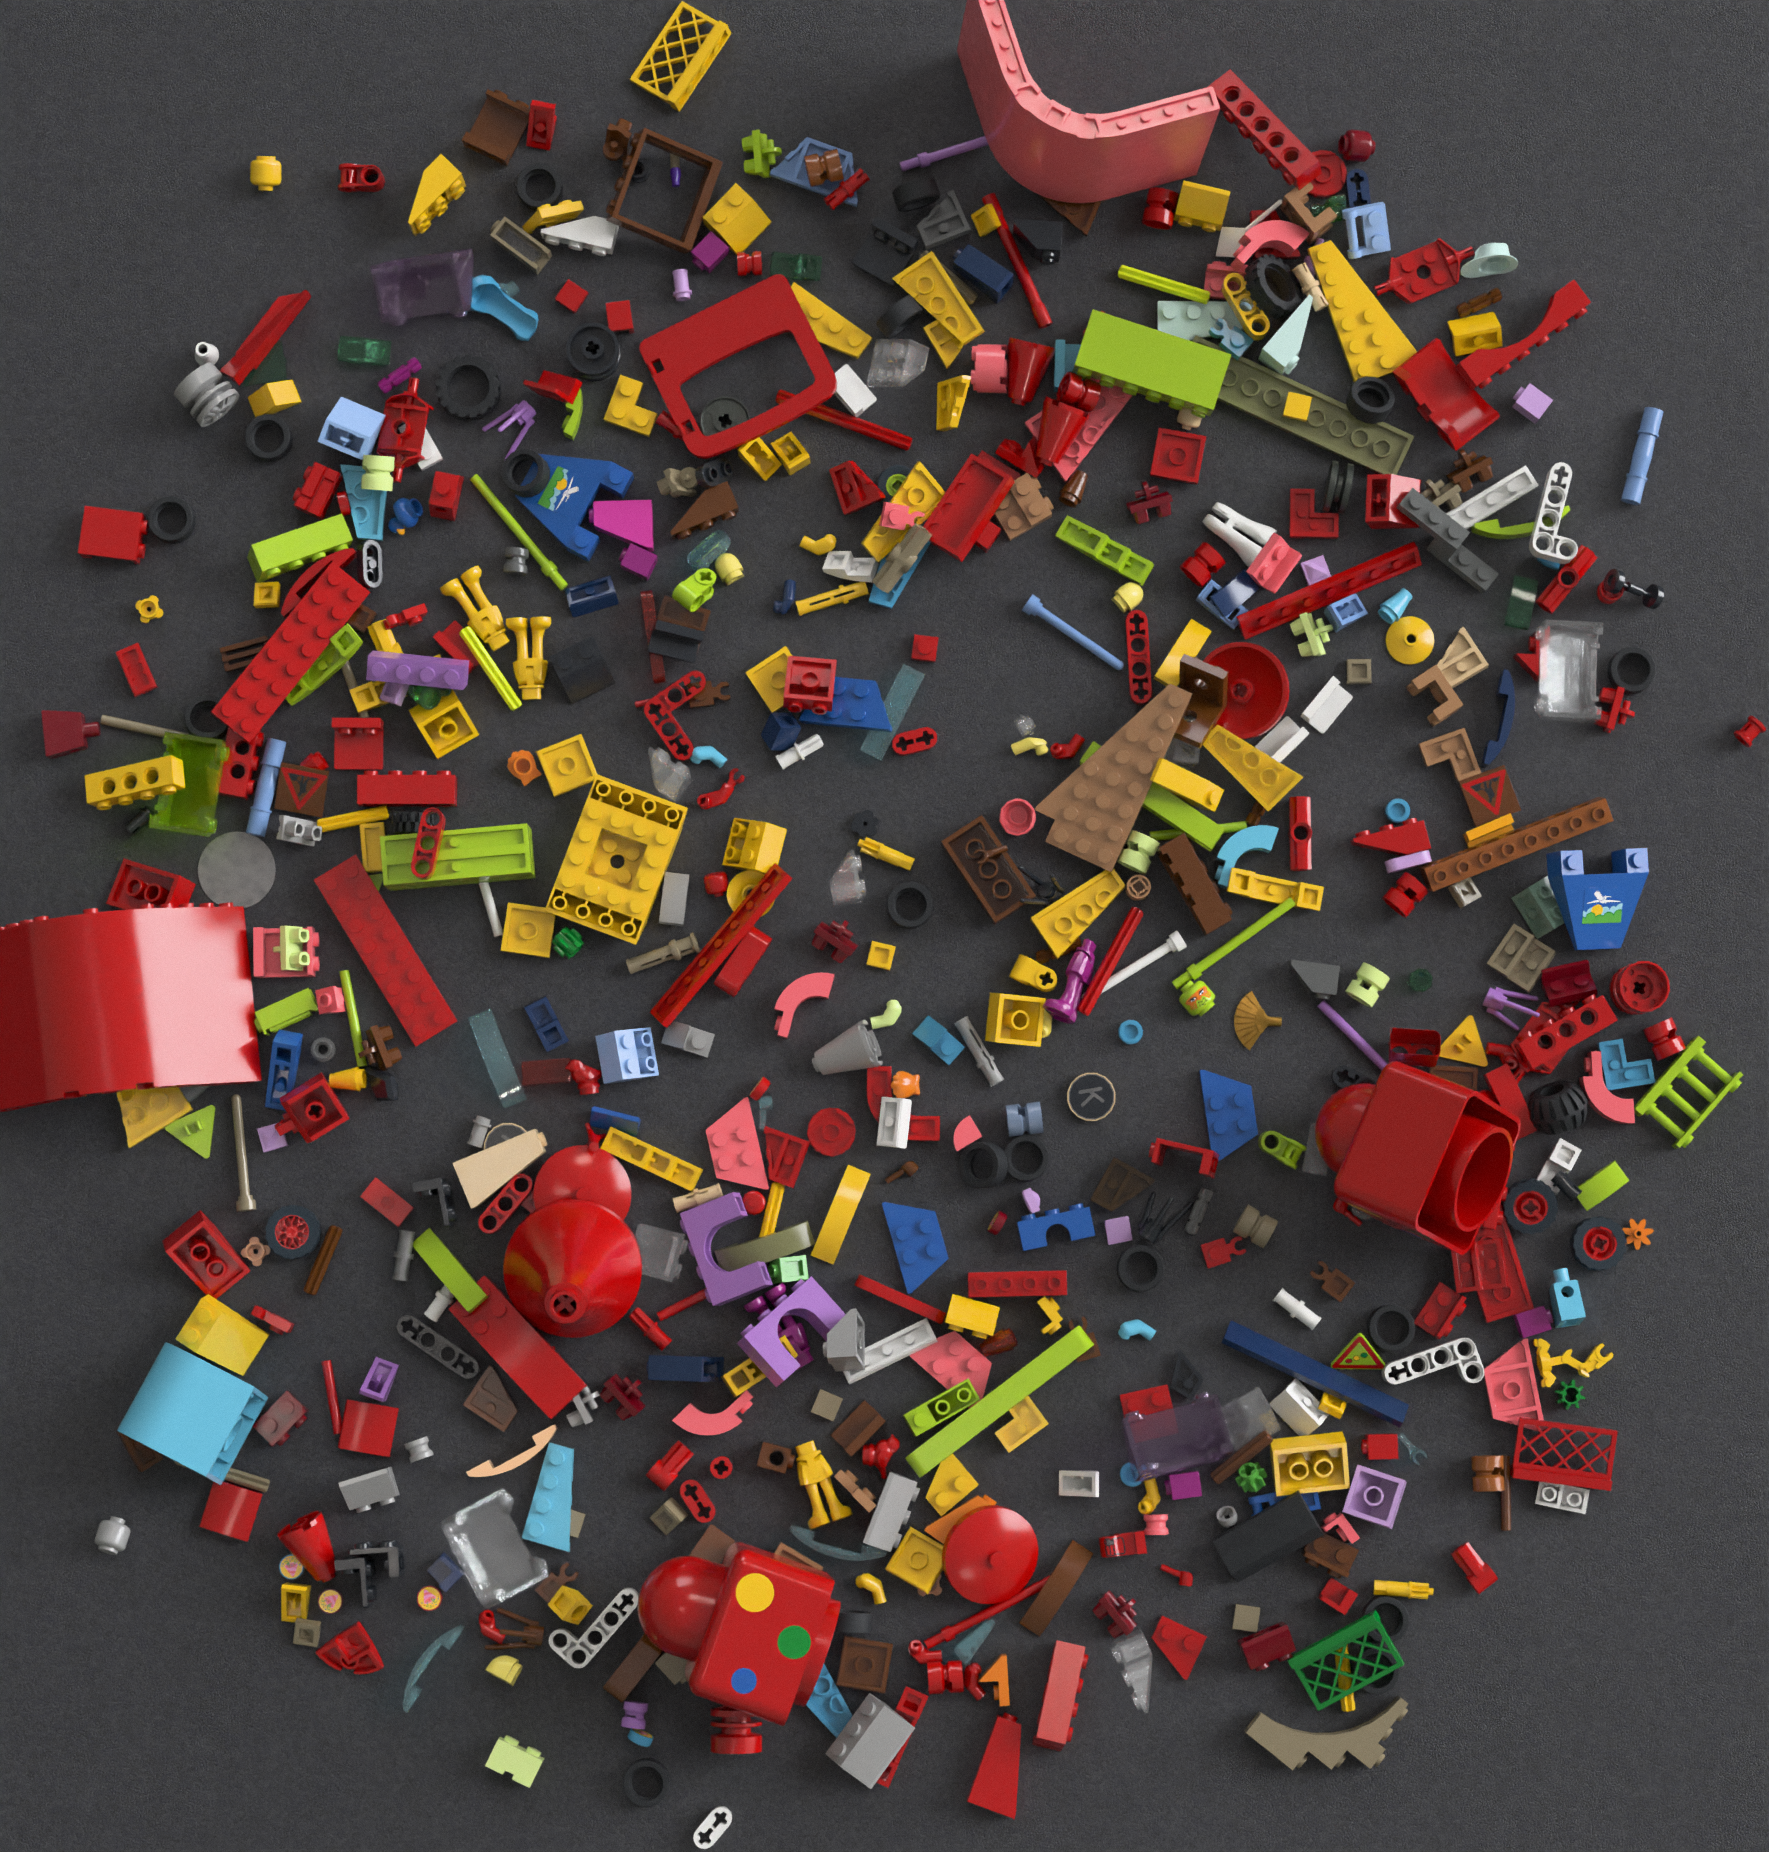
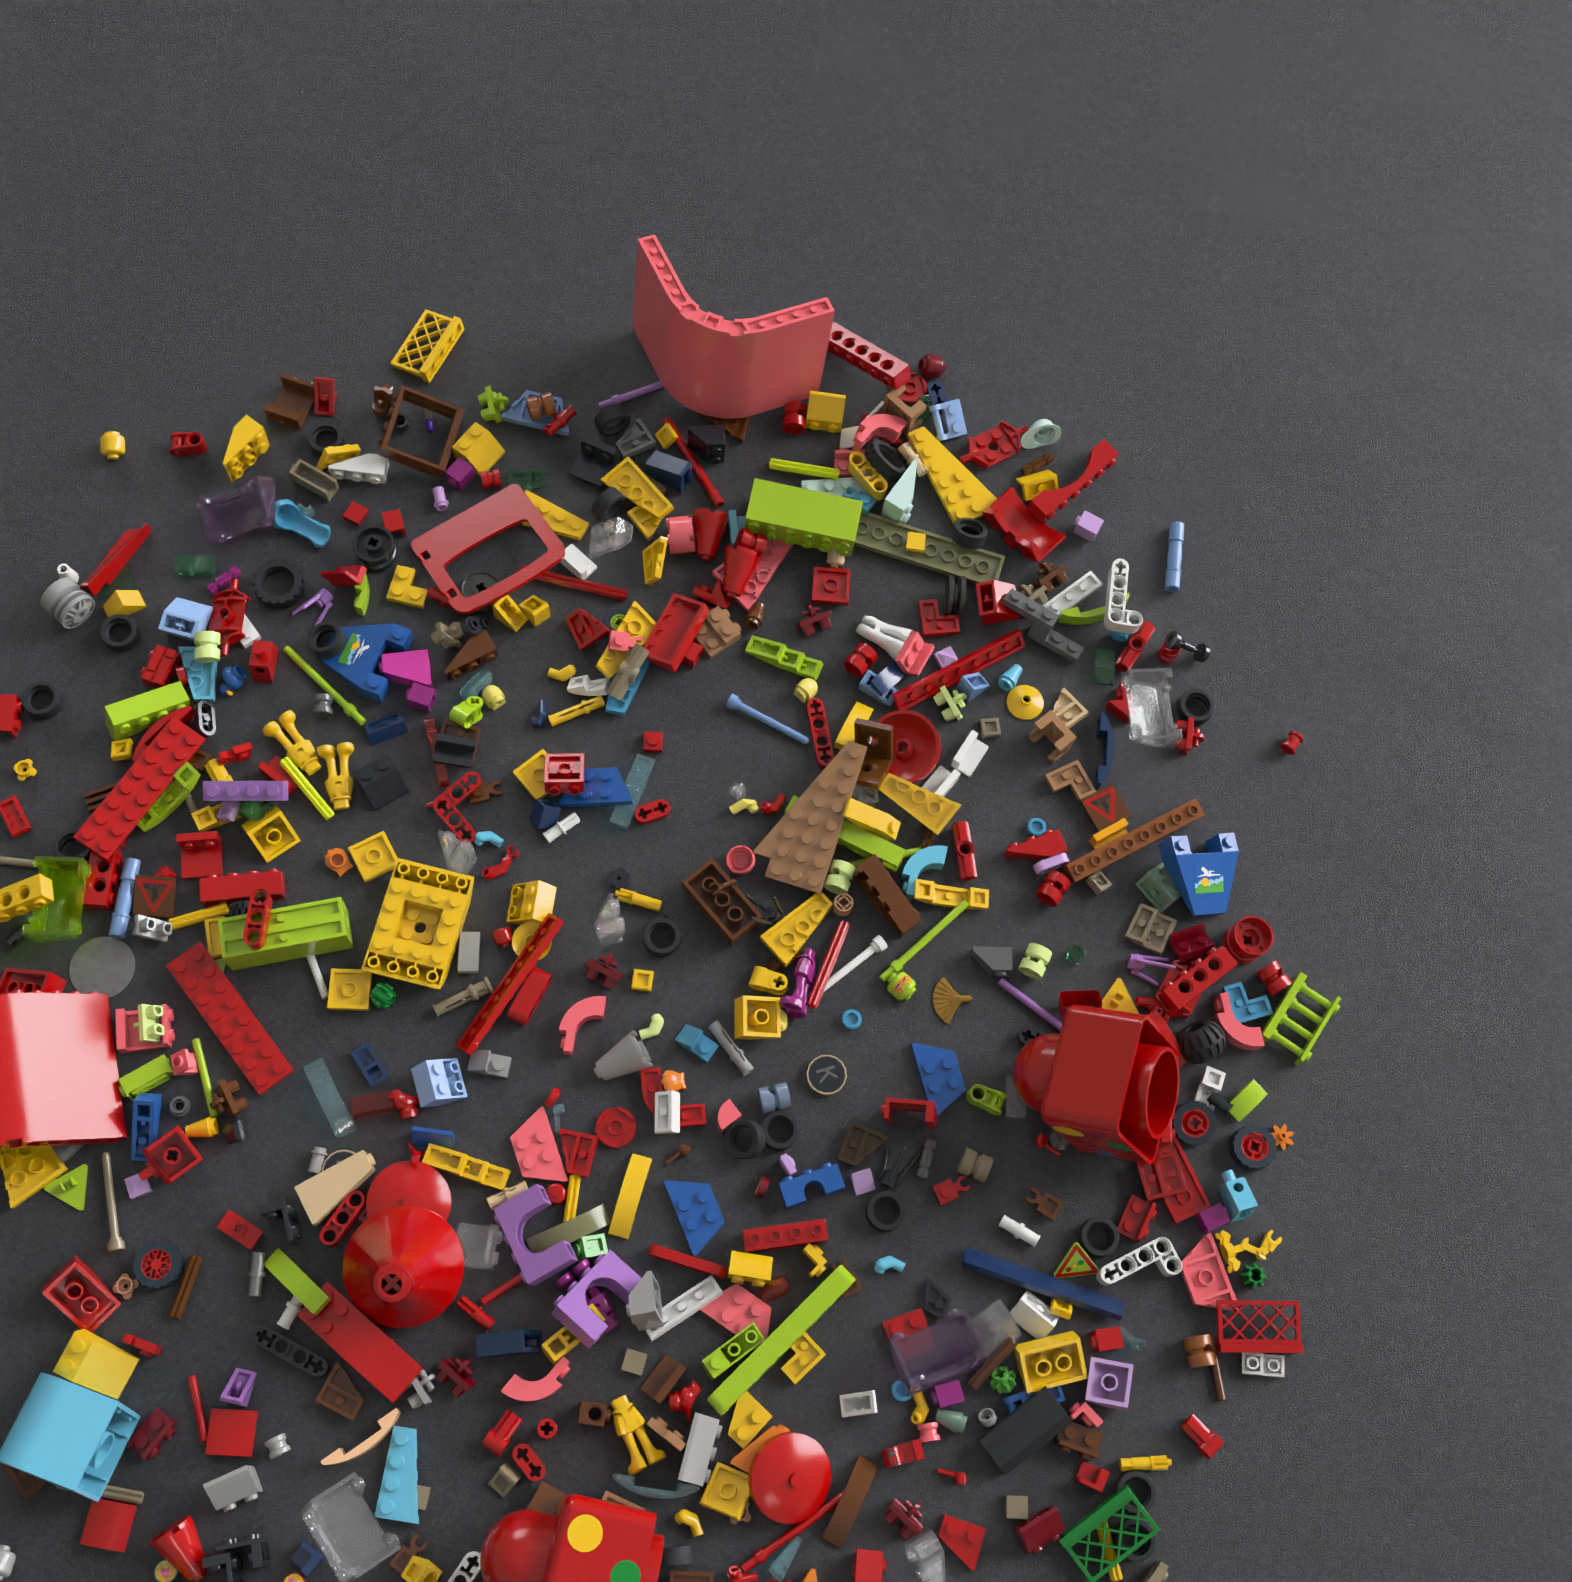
camera: 15 degrees left, 15 degrees down
(1185, 1514) = (952, 1420): none -> sand green cone

